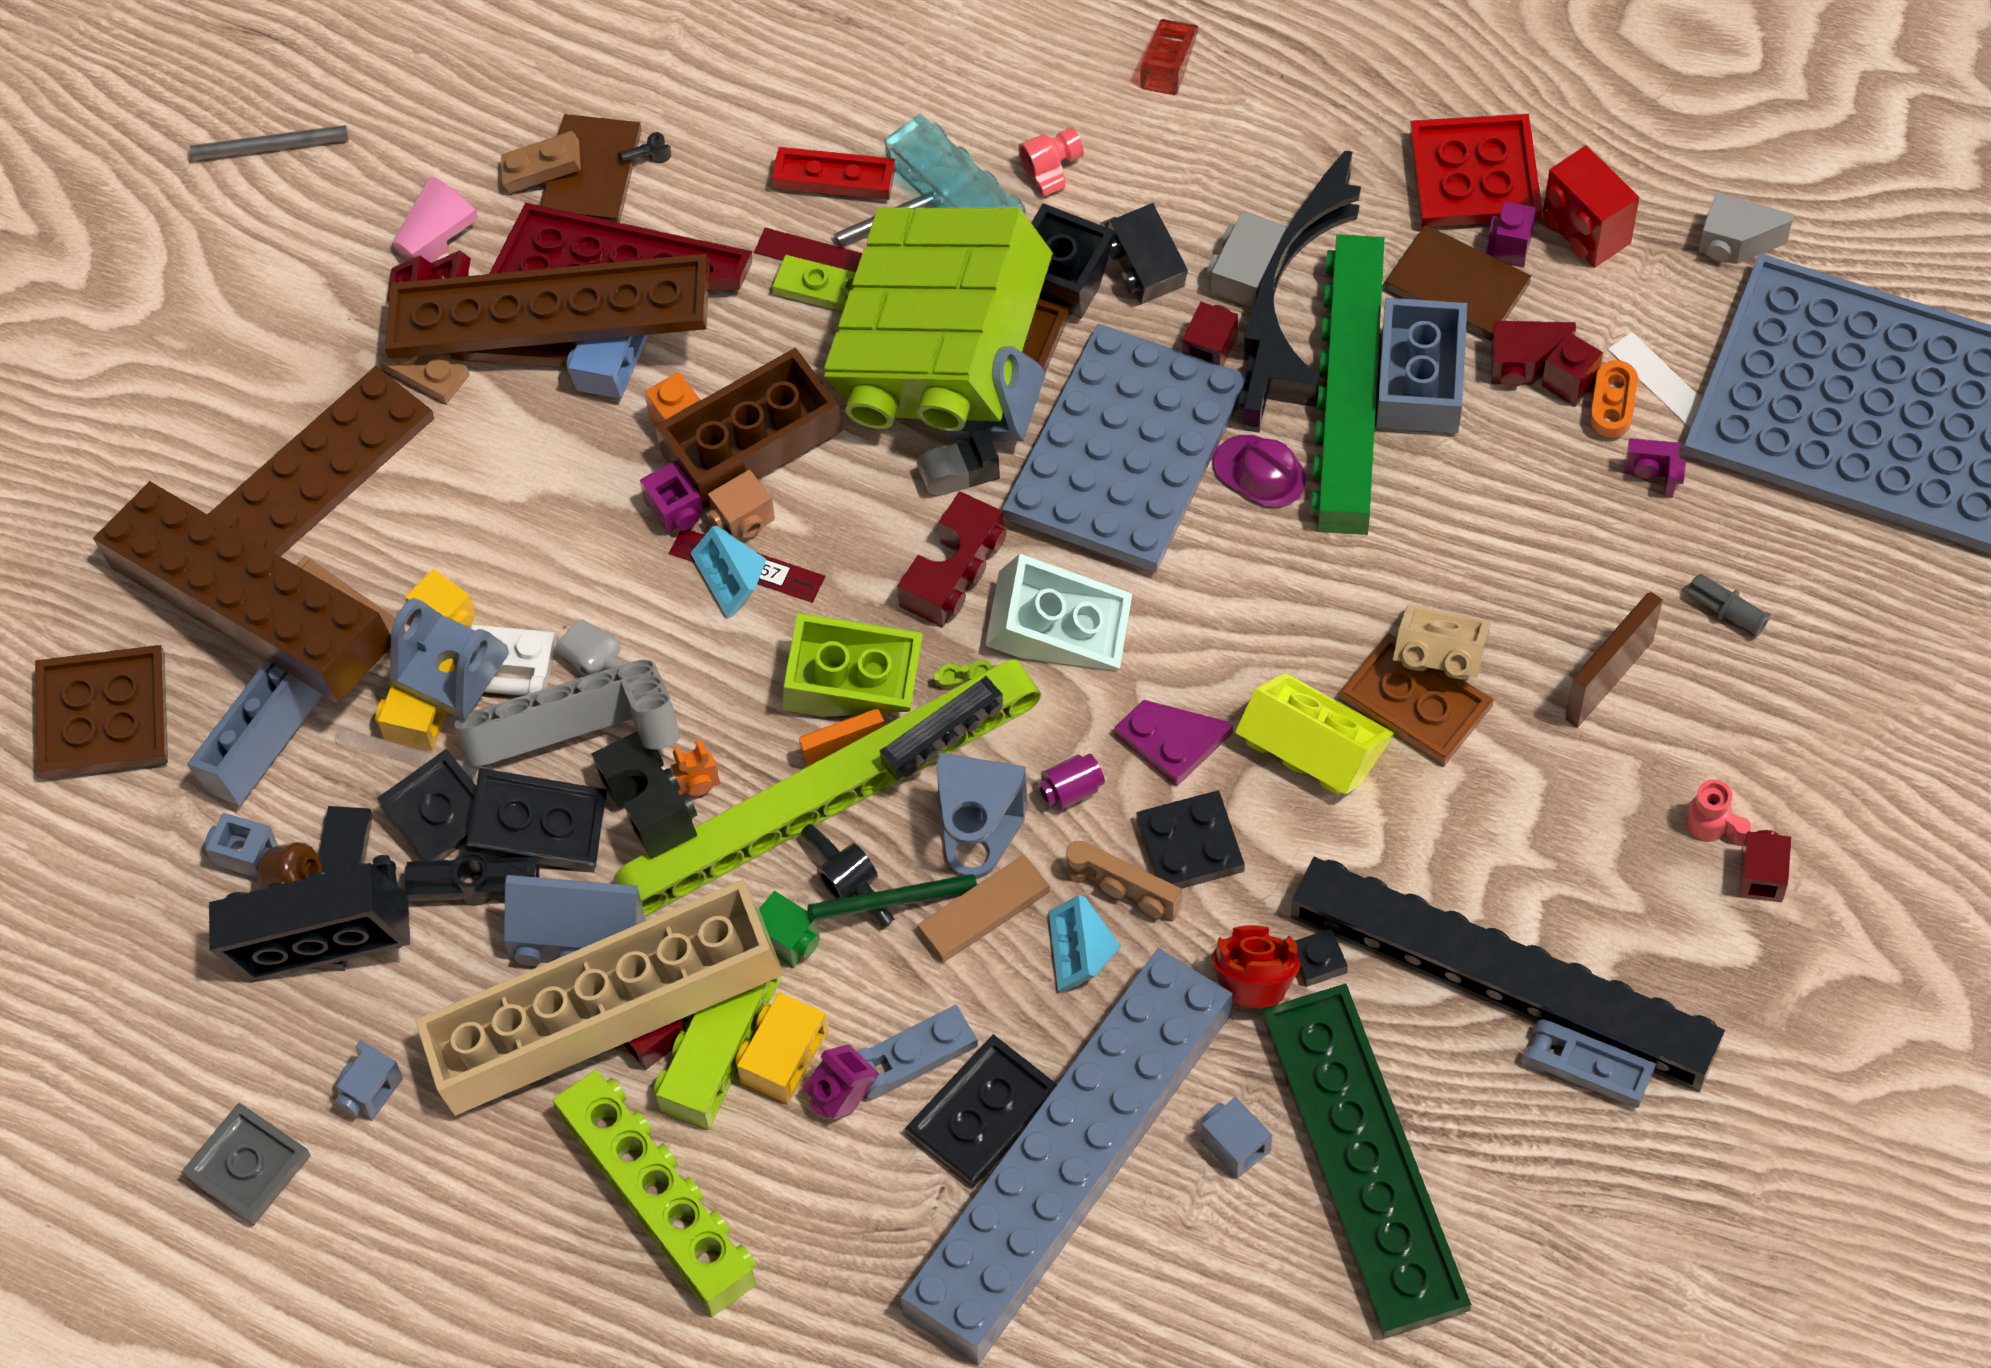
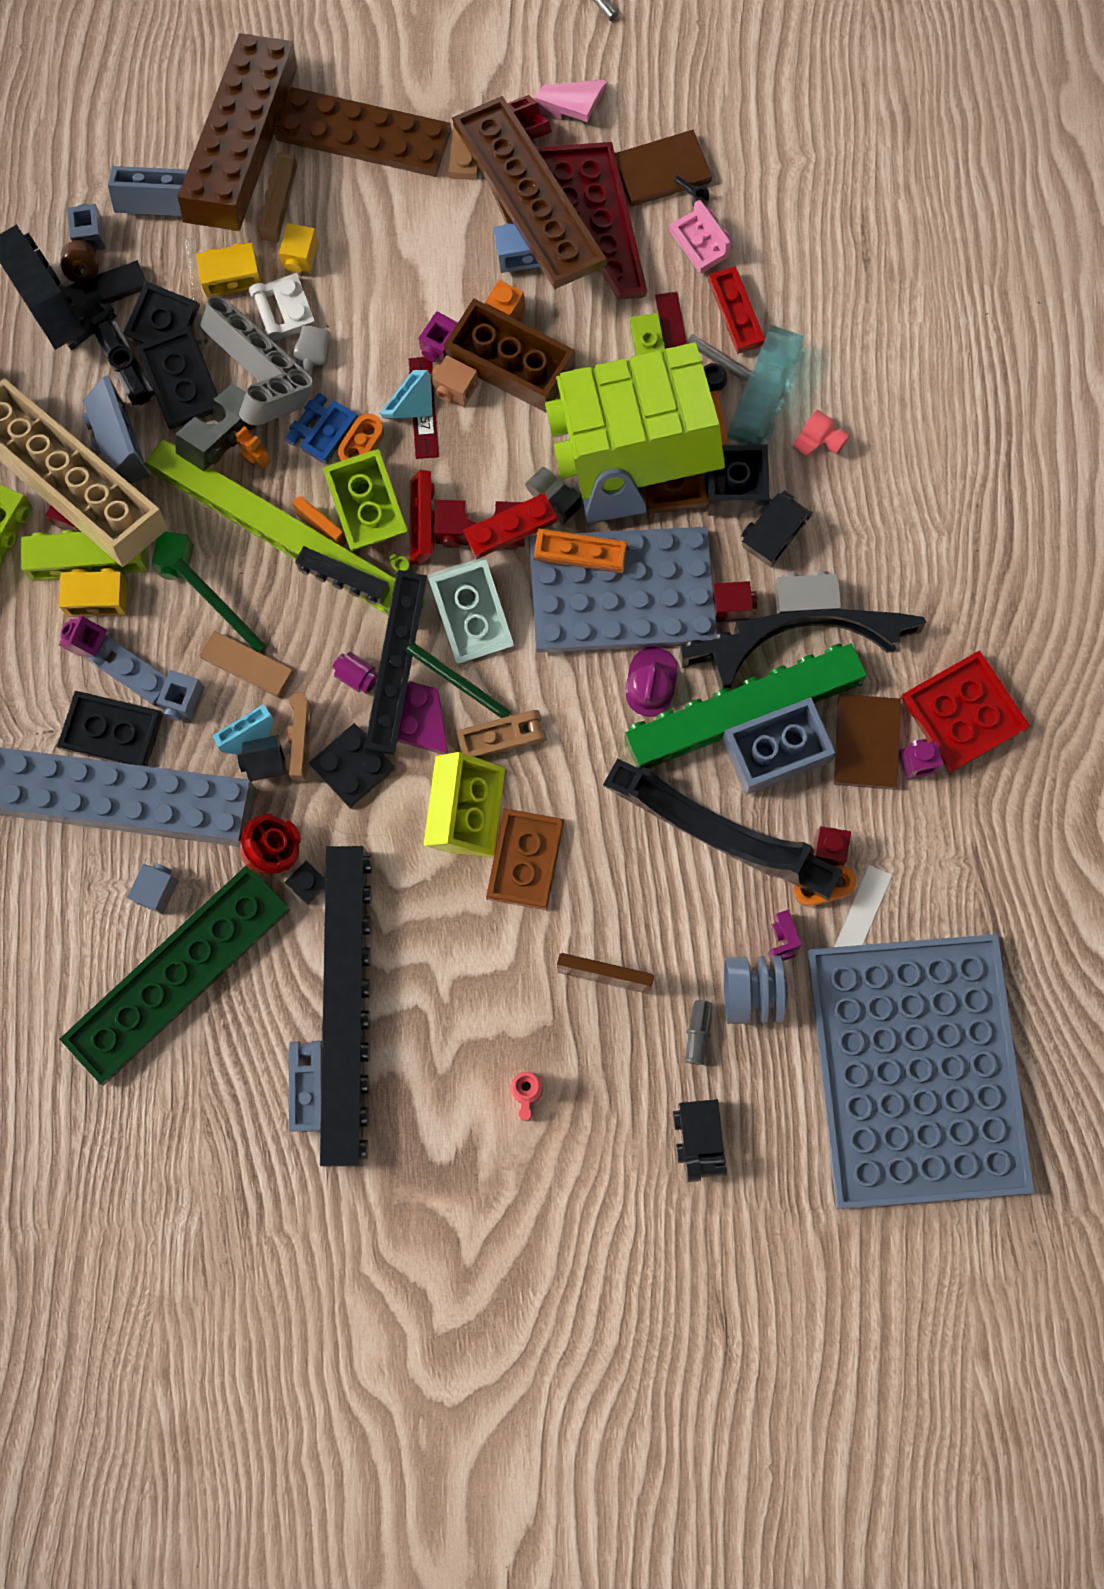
camera: 65 degrees right, 15 degrees up
(101, 712) = (140, 106): reddish brown plate -> none
(429, 643) = (238, 254): sand blue hose -> none
(540, 162) = (647, 134): medium nougat plate -> none
(717, 164) = (701, 237): none -> bright pink bracket
(721, 679) = (327, 433): none -> blue plate
(757, 651) = (357, 441): none -> orange plate
(845, 871) = (229, 570): black piece -> none
(869, 604) = (421, 517): none -> red plate
(980, 804) = (302, 624): sand blue hose -> none
(984, 517) = (510, 526): none -> red plate
(985, 985) = (178, 686): none -> sand blue brick
(1059, 458) = (580, 550): none -> orange tile
(1091, 719) = (395, 662): none -> black plate
(1130, 930) = (262, 758): none -> black brick
(1151, 664) = (457, 680): none -> dark green bar
(1166, 58) = (932, 475): clear red slope -> none
(1242, 655) = (501, 735): none -> medium nougat plate
(1441, 642) = (567, 855): tan plate -> none
(1522, 349) = (830, 808): dark red slope -> none
(1567, 414) = (767, 854): none -> black slope
(1590, 206) = (968, 800): red brick -> none
(1709, 513) = (754, 989): none -> sand blue wheel
(1742, 229) = (1012, 913): light grey slope -> none
(1764, 866) = (504, 1140): dark red brick -> none
(1859, 655) = (700, 1138): none -> black hinge

